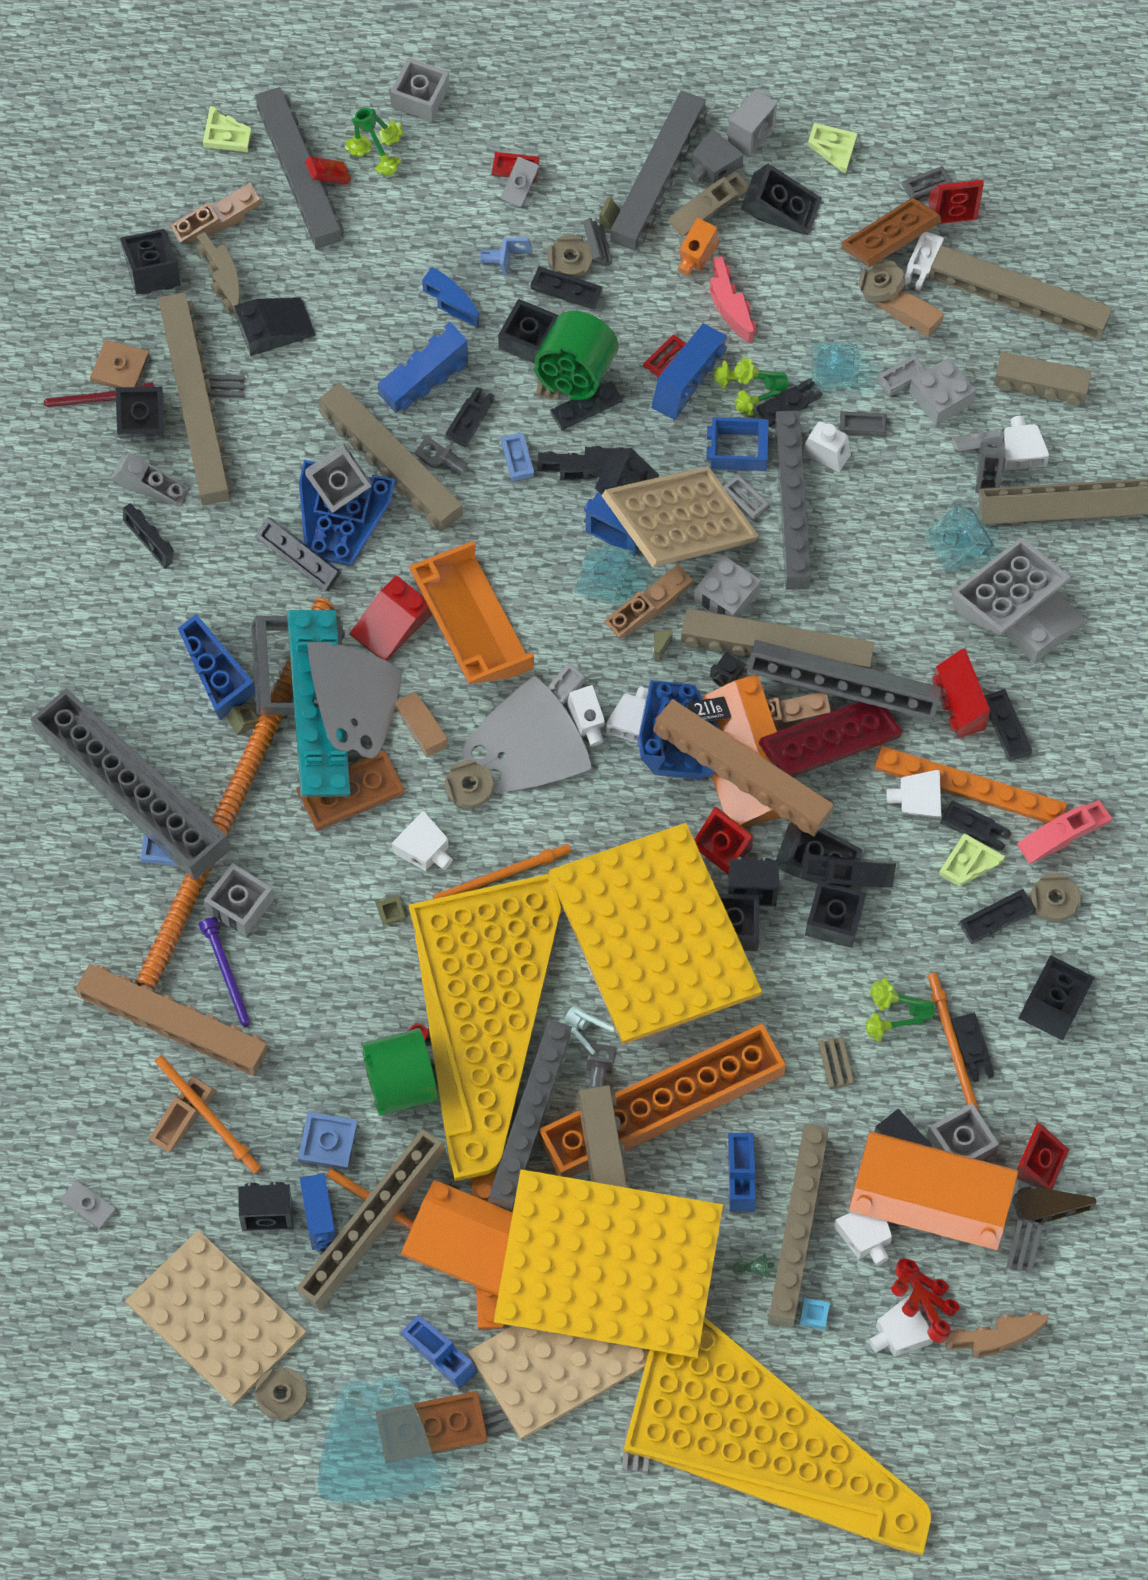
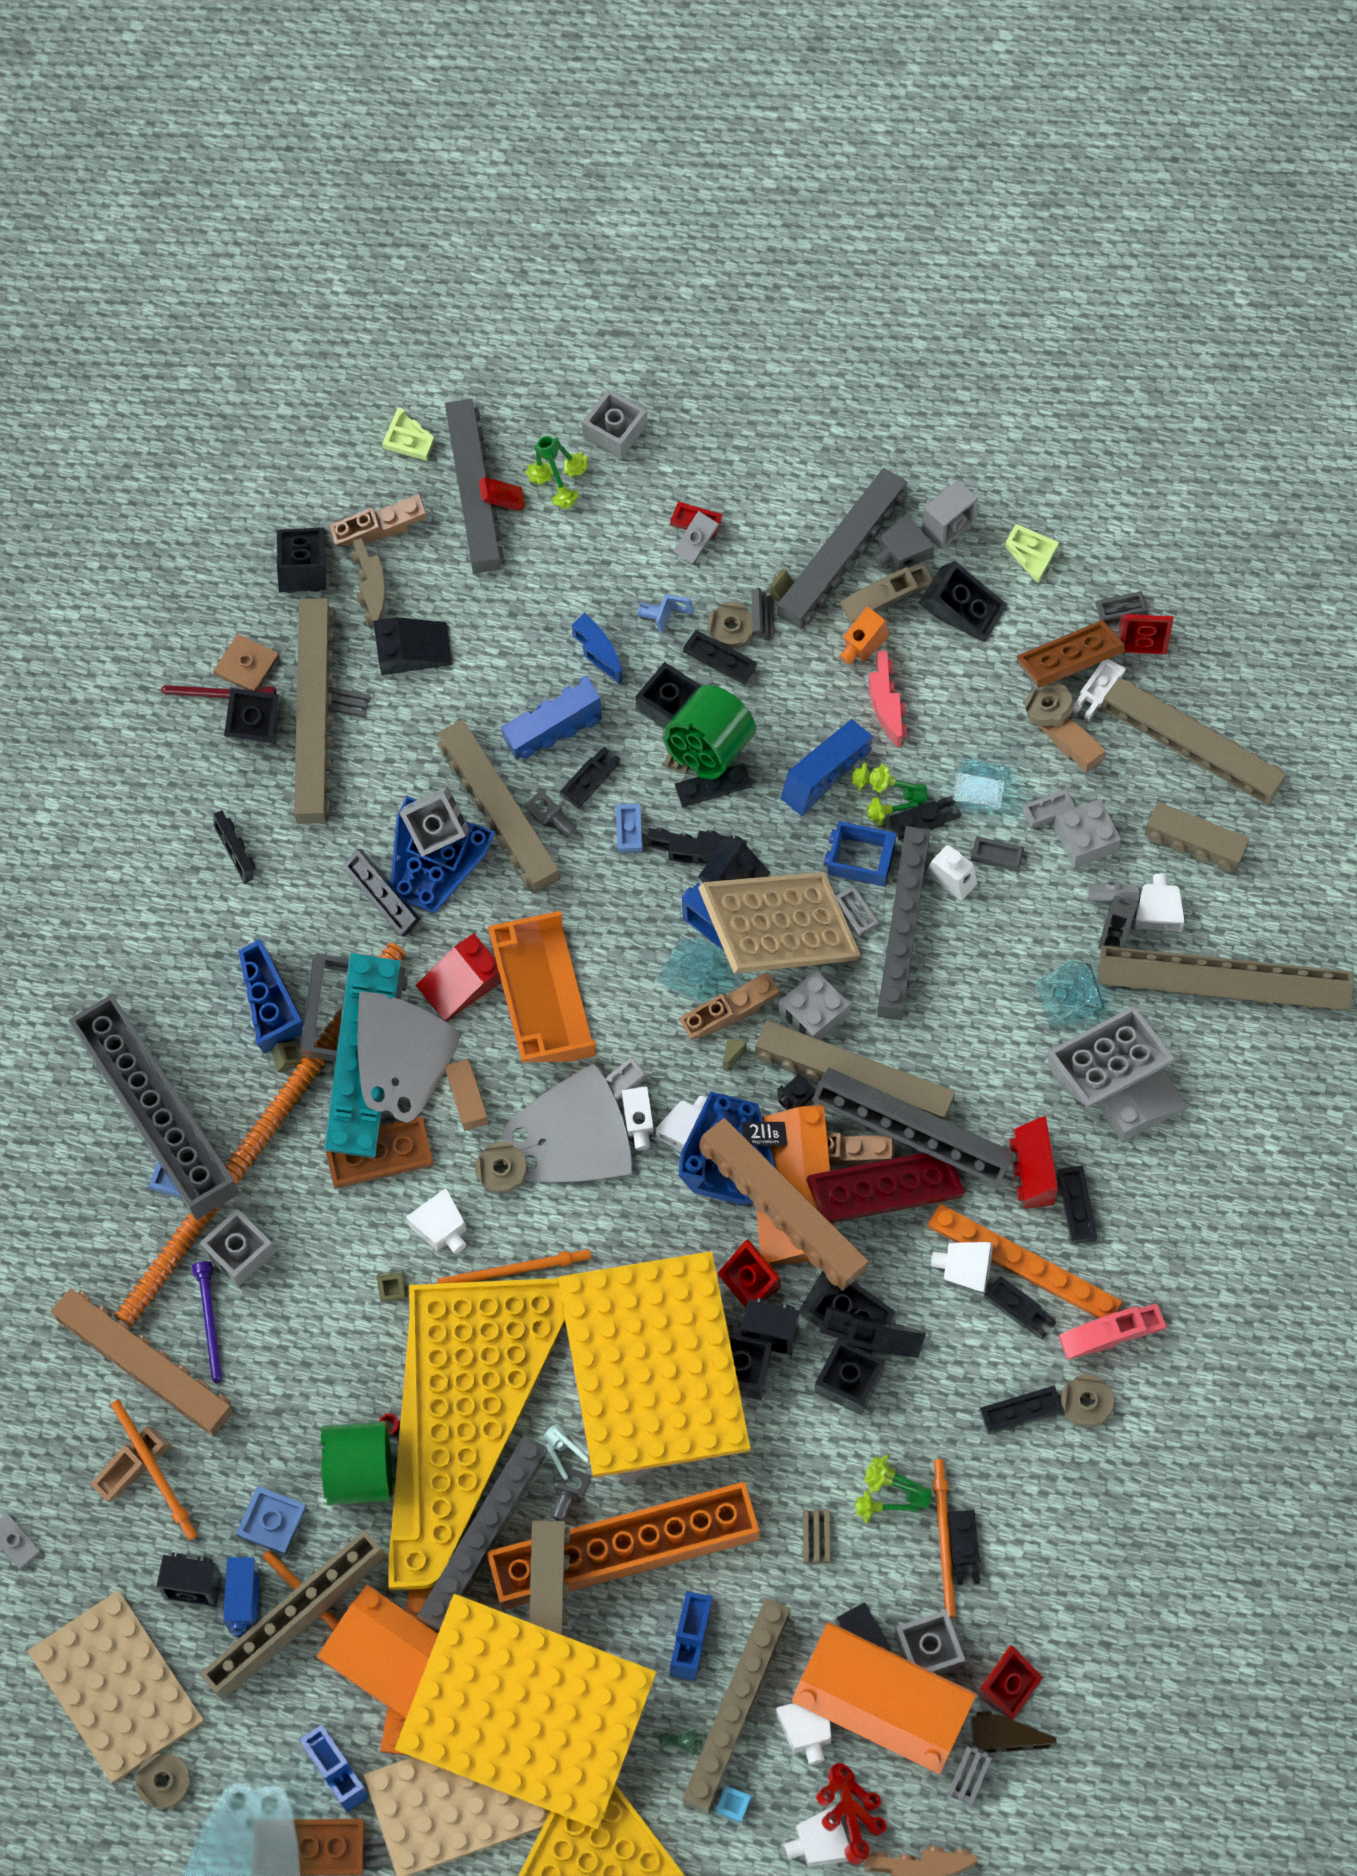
camera: 15 degrees right, 0 degrees up
(148, 480) = (248, 789): light grey slope -> none
(655, 369) = (786, 752): red tile -> none
(969, 861) = (1004, 1344): yellowish green wing -> none
(1056, 997) = (1064, 1510): black slope -> none

